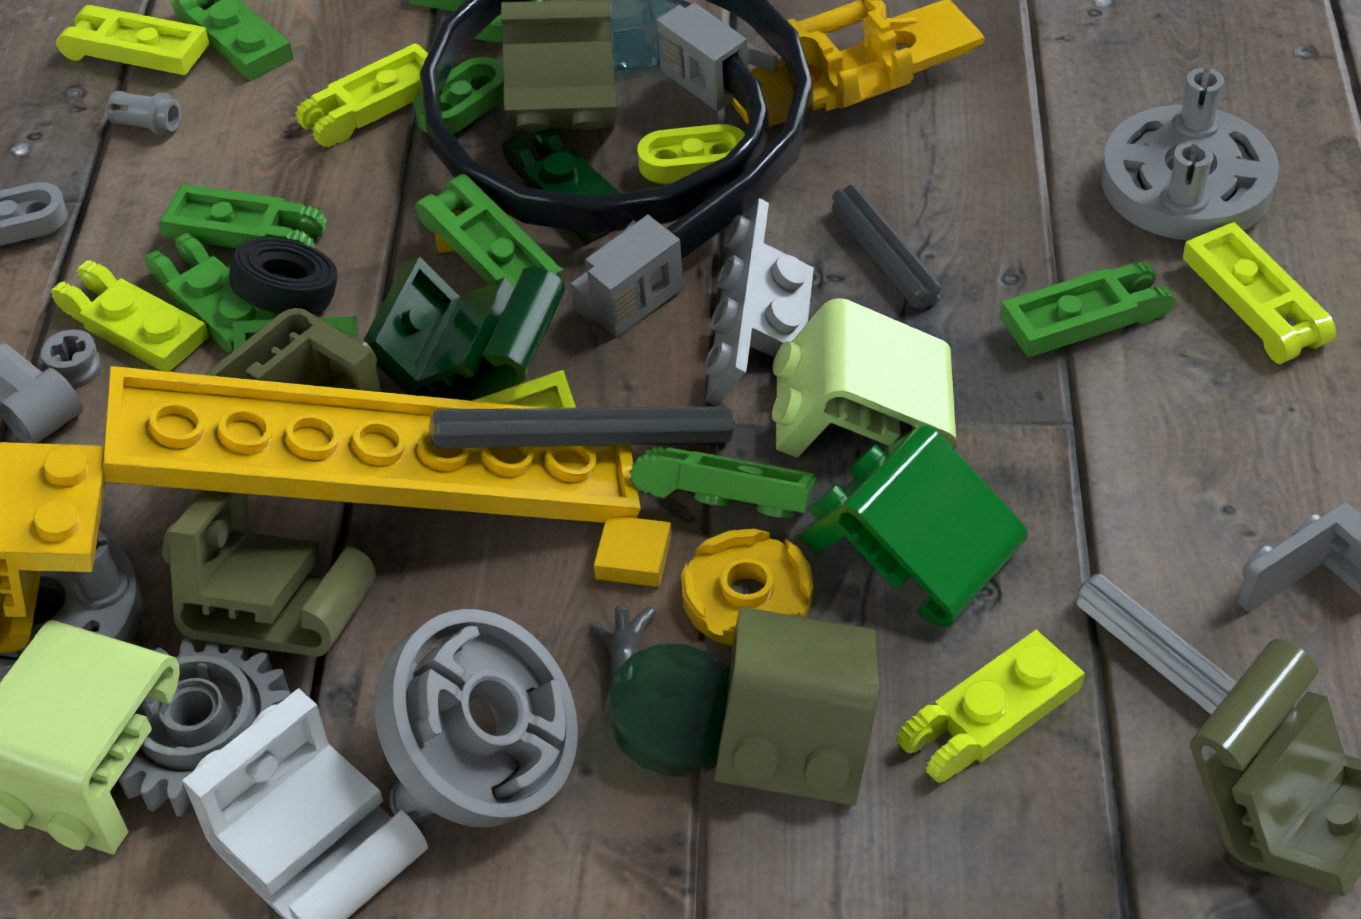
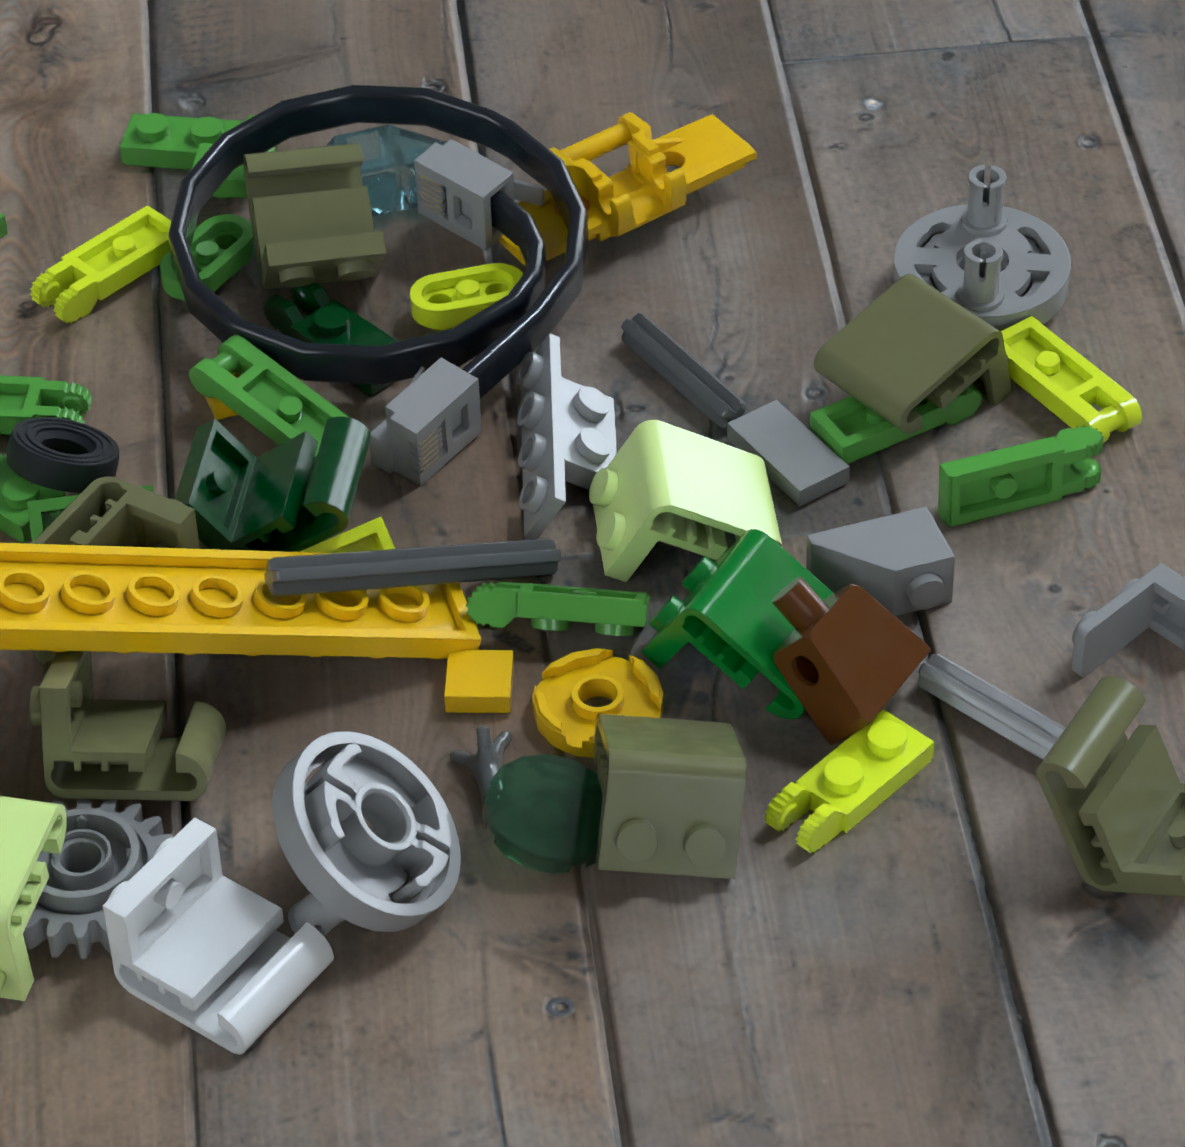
camera: 10 degrees left, 5 degrees down
(977, 339) = (791, 452): none -> light grey tile
(1001, 571) = (843, 655): none -> reddish brown torso
(1057, 468) = (892, 557): none -> light grey slope
(1112, 247) = (915, 348): none -> olive piece
(1205, 387) = (1019, 476): none -> bright green hinge

